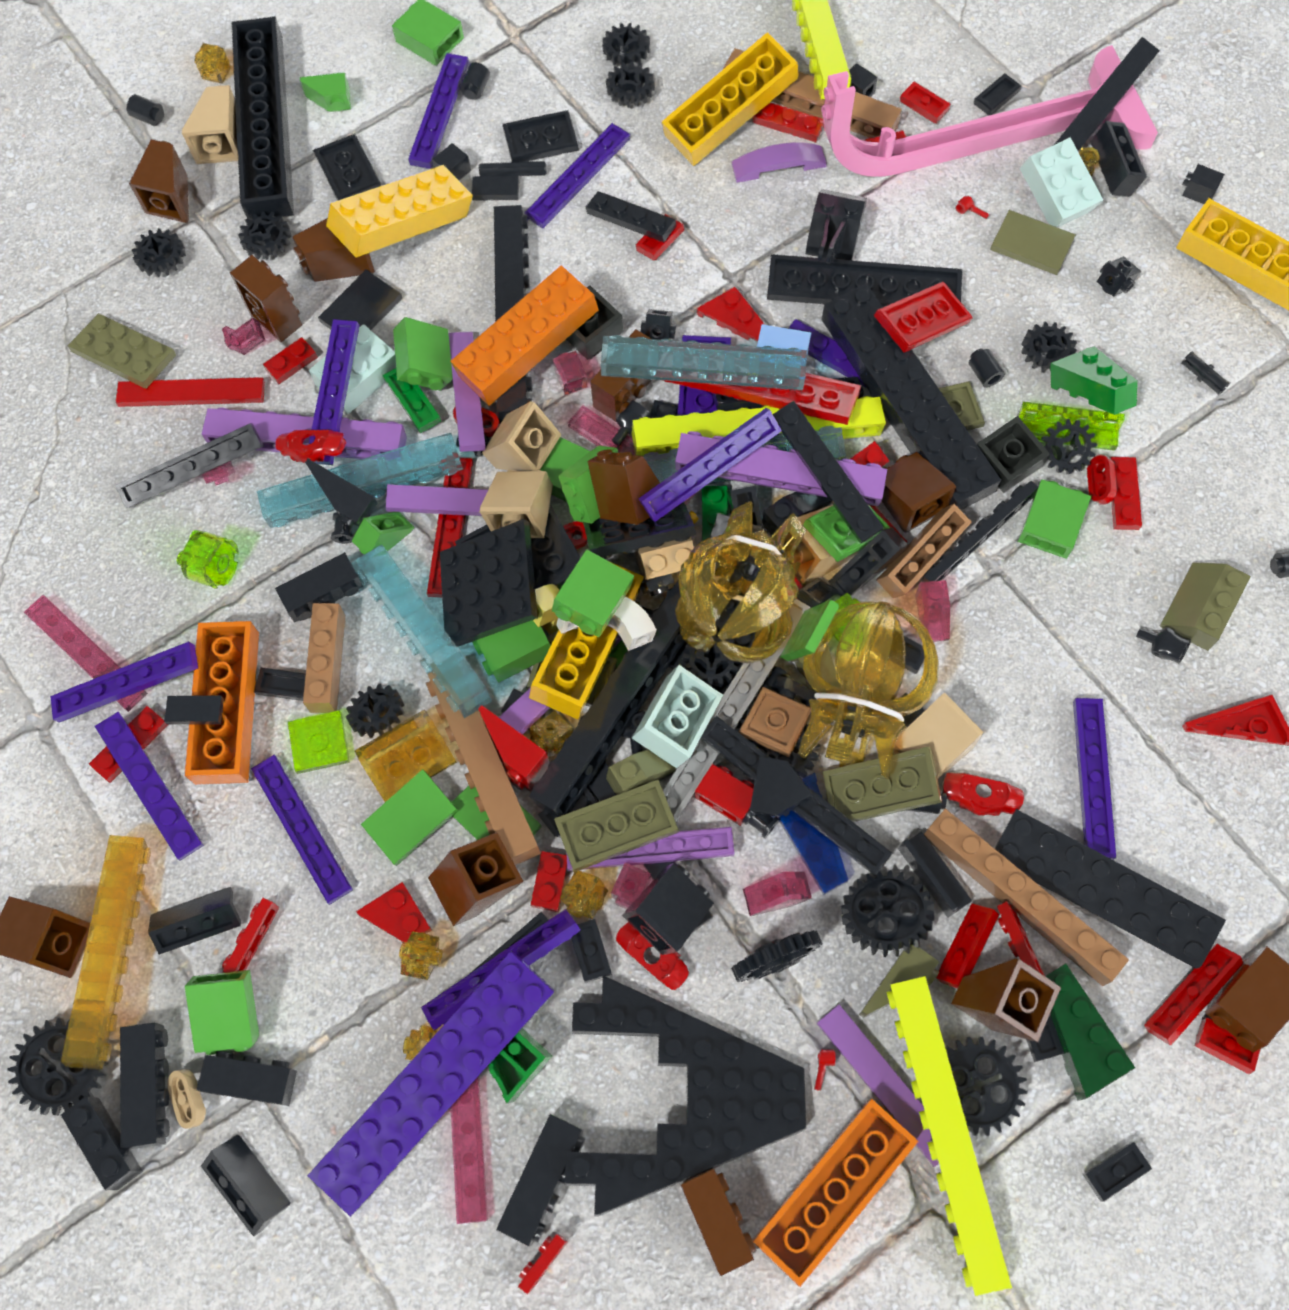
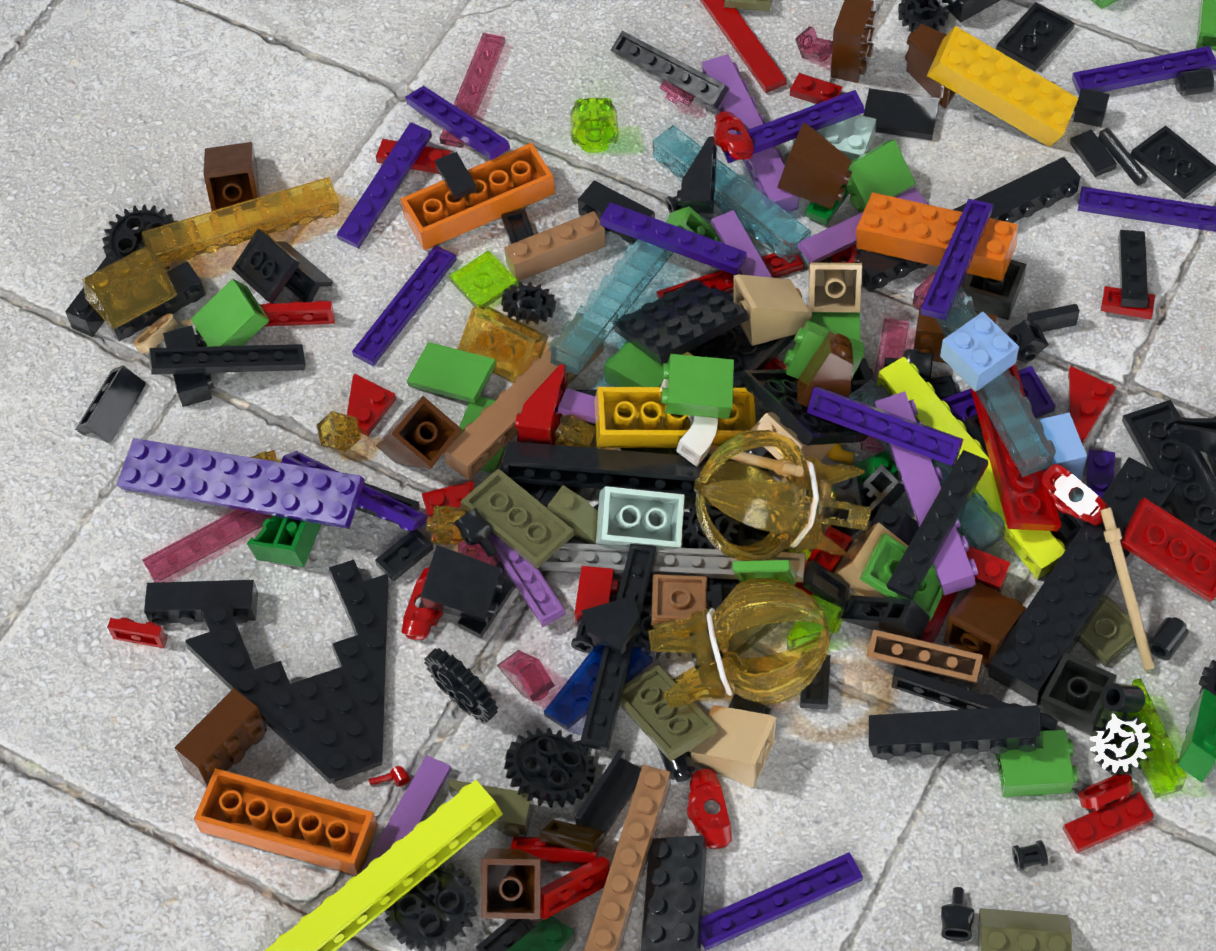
camera: 65 degrees right, 10 degrees down
(124, 1105) = (129, 287): none -> clear yellow slope
(178, 946) = (265, 266): none -> black tile
(270, 1037) = (226, 359): none -> black plate
(387, 549) = (673, 238): none -> dark purple plate
(391, 394) = (815, 169): none -> reddish brown slope
(575, 325) = (956, 259): none -> dark purple tile
(614, 869) = (476, 530): none -> black piece
(644, 297) = (1055, 318): none -> black tile
(685, 352) = (979, 351): none -> light blue brick
(723, 562) = (781, 466): none -> tan bar
(861, 355) = (1061, 483): none -> piece
(903, 351) = (1113, 536): none -> tan bar
(934, 609) = (870, 693): clear pink slope -> none
(963, 924) = (572, 836): none -> dark brown tile
(1009, 561) = (956, 732): none -> black brick
(1041, 421) = (1123, 698): none -> black brick
(1133, 563) = (1022, 856): none -> black bush

